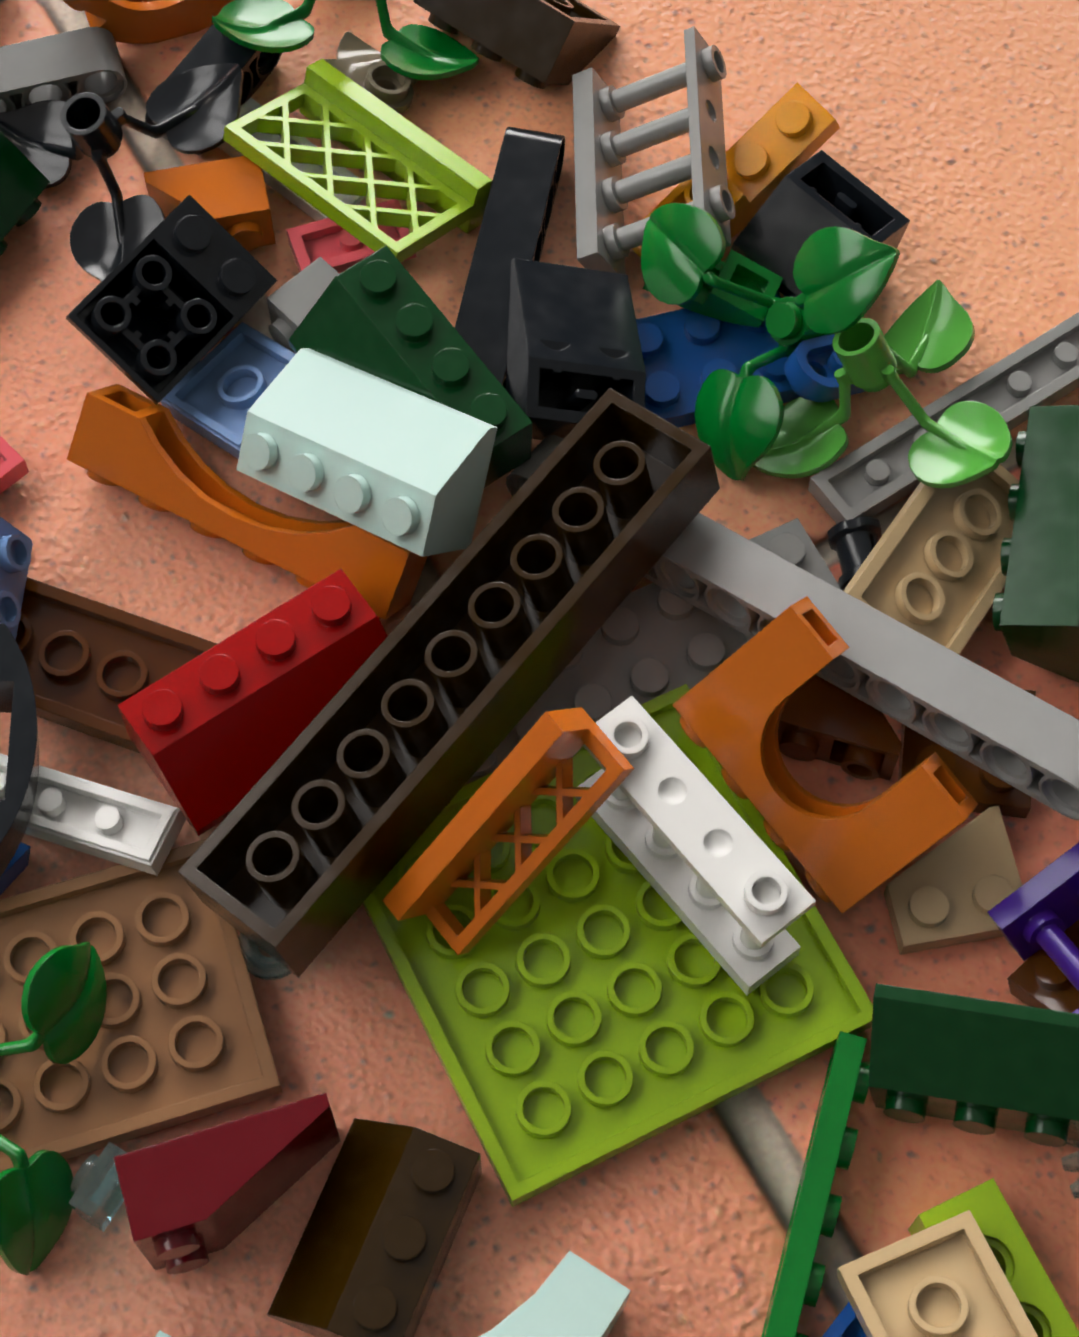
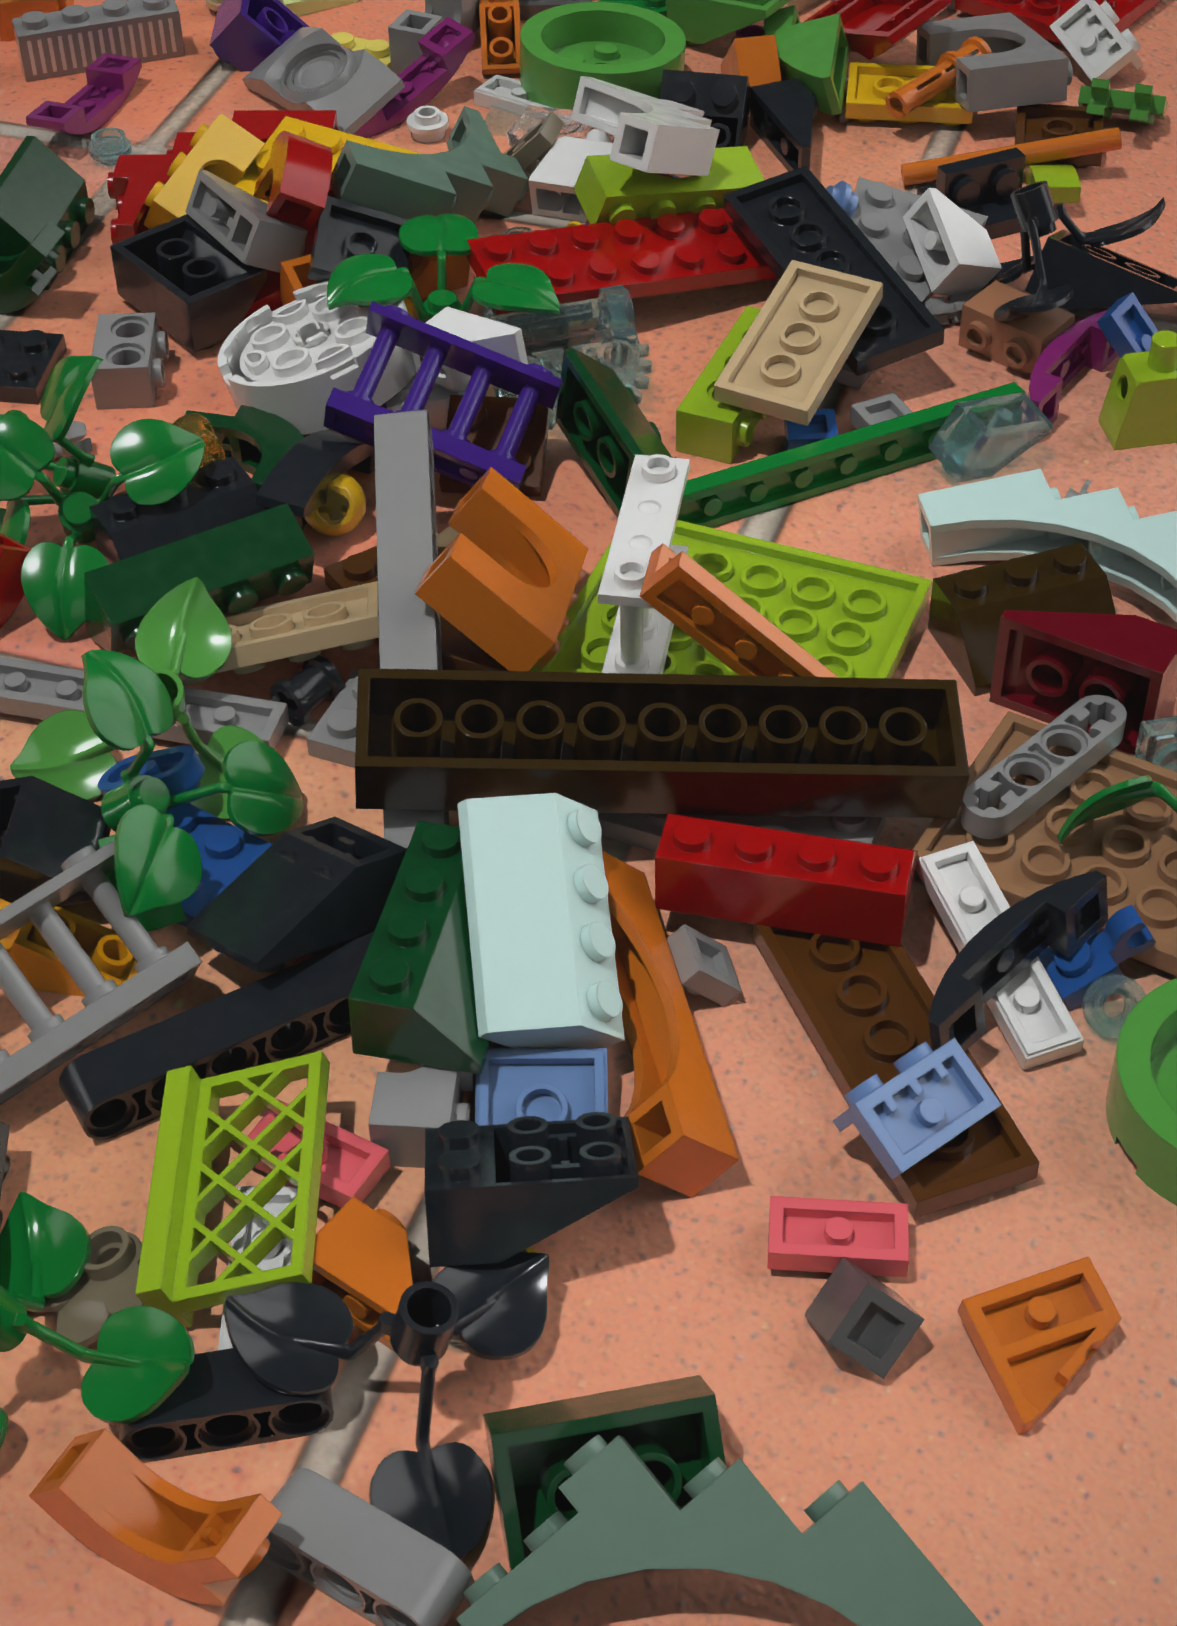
camera: 130 degrees left, 20 degrees down
(171, 1025) = (1053, 771): none -> light grey beam
(257, 589) = (703, 965): none -> light grey plate

